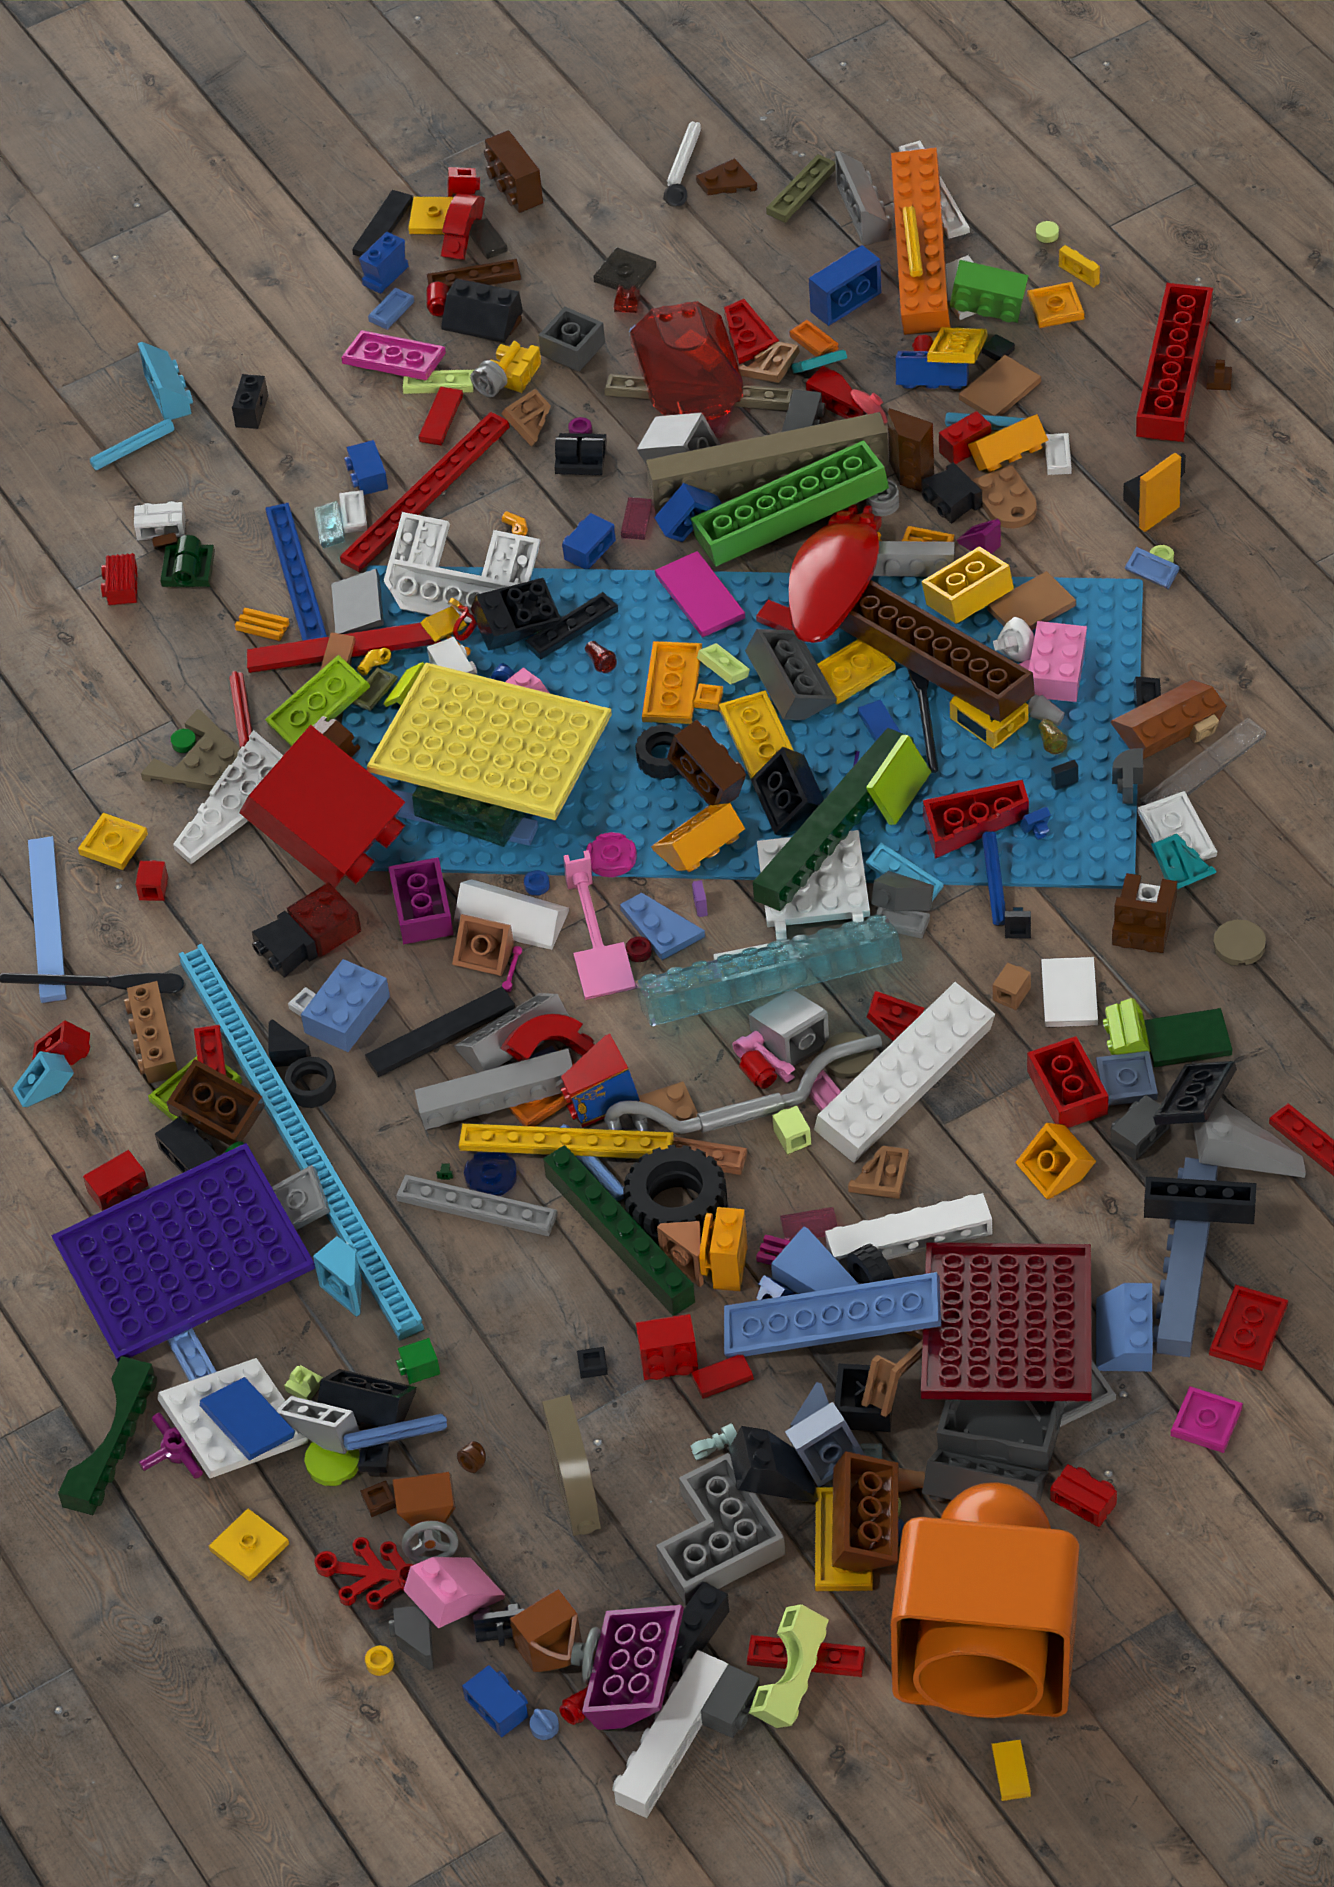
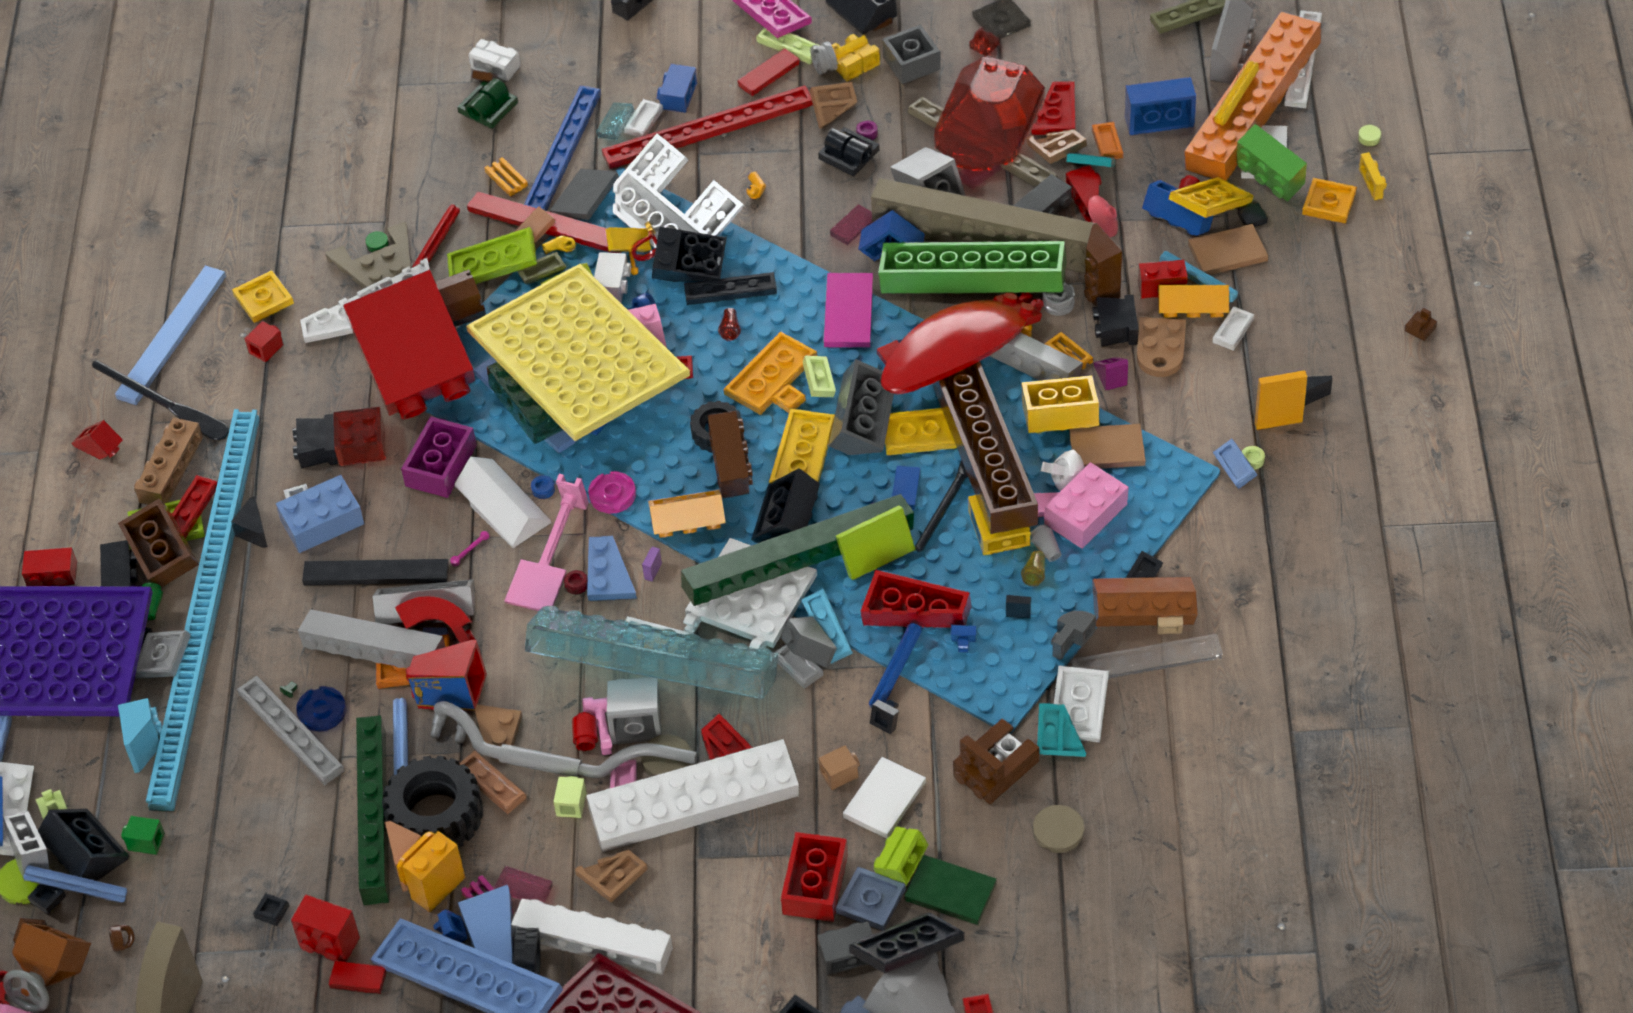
camera: 30 degrees right, 0 degrees up
(43, 1078) = (65, 458): medium azure slope -> none
(120, 579) = (430, 93): red brick -> none
(307, 1066) = (241, 550): black tyre -> none
(483, 945) = (458, 518): nougat slope -> none
(549, 1139) = (393, 714): yellow tile -> none
(588, 541) = (798, 226): blue brick -> none
(1055, 1160) = (756, 938): light orange slope -> none
(1174, 362) = (1386, 294): red brick -> none

